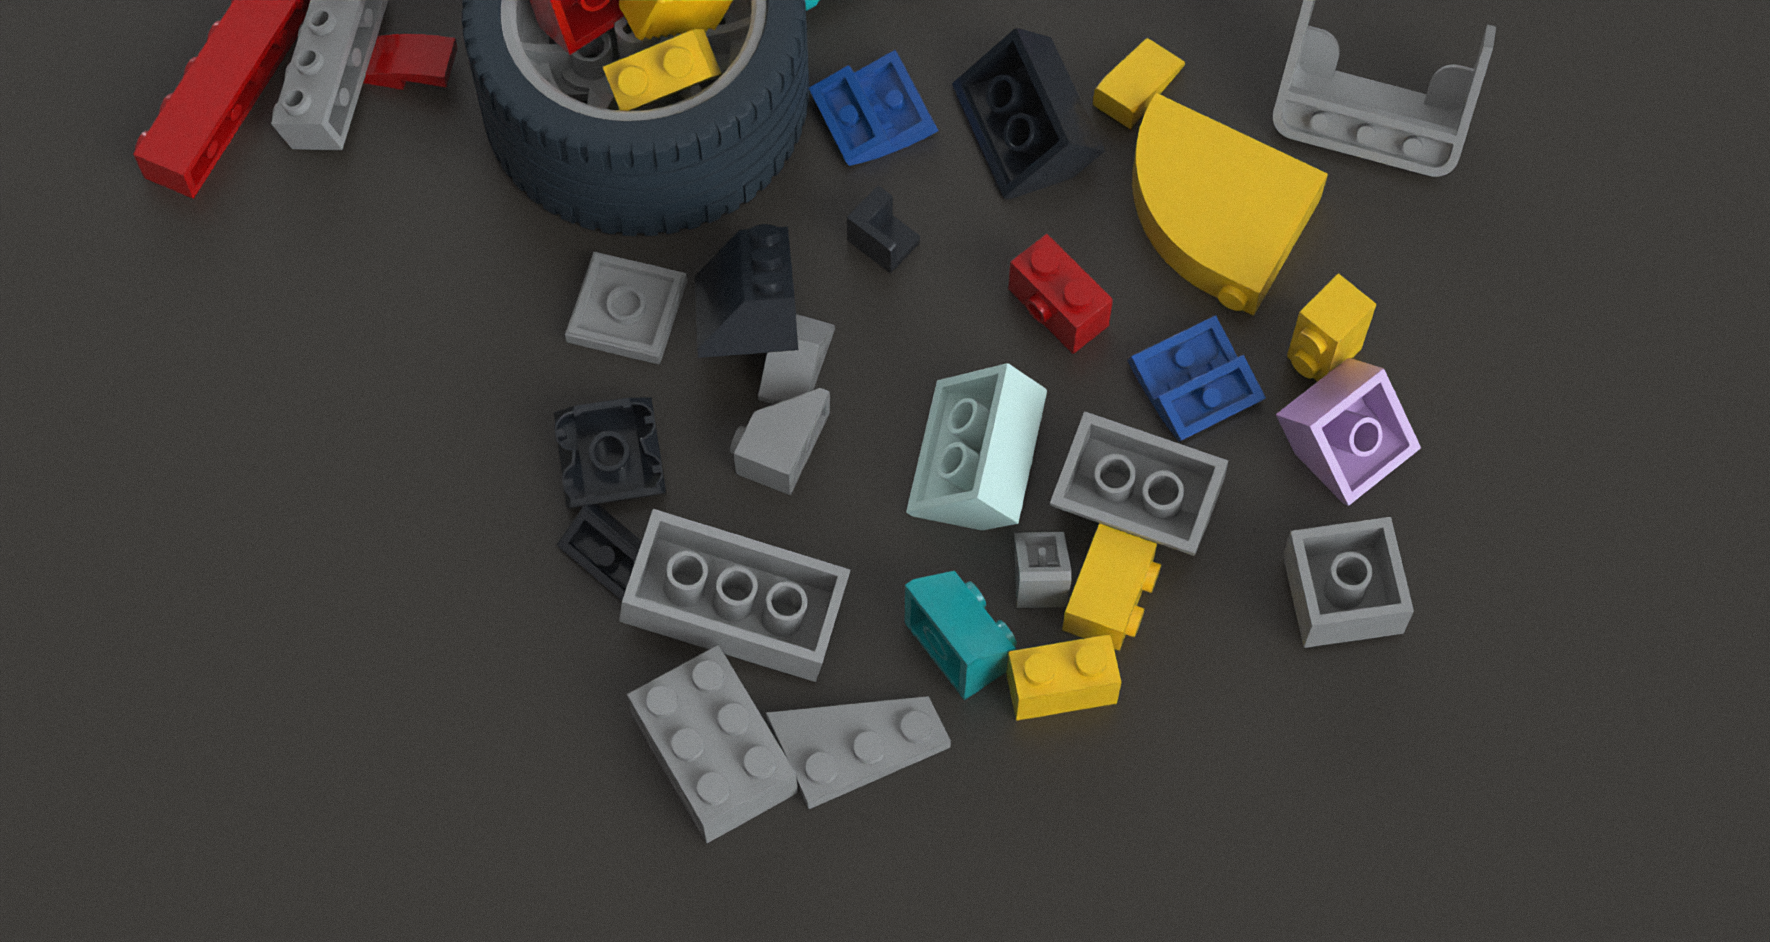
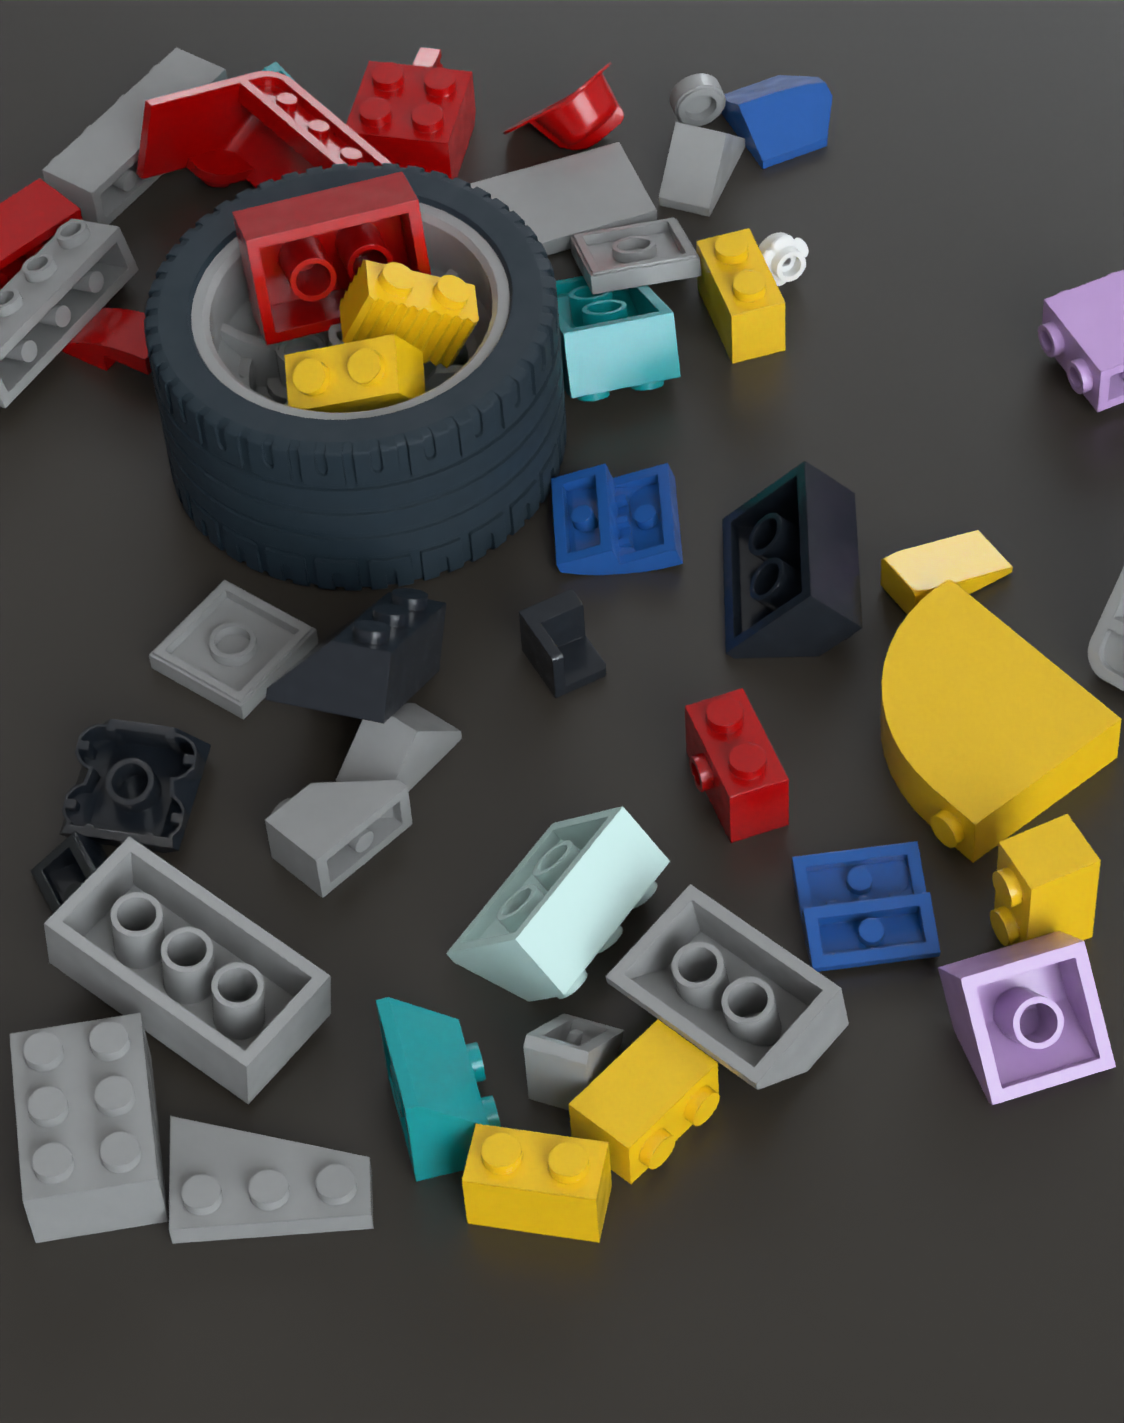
camera: 25 degrees right, 15 degrees down
(1347, 582) = (939, 1180): light grey brick -> none

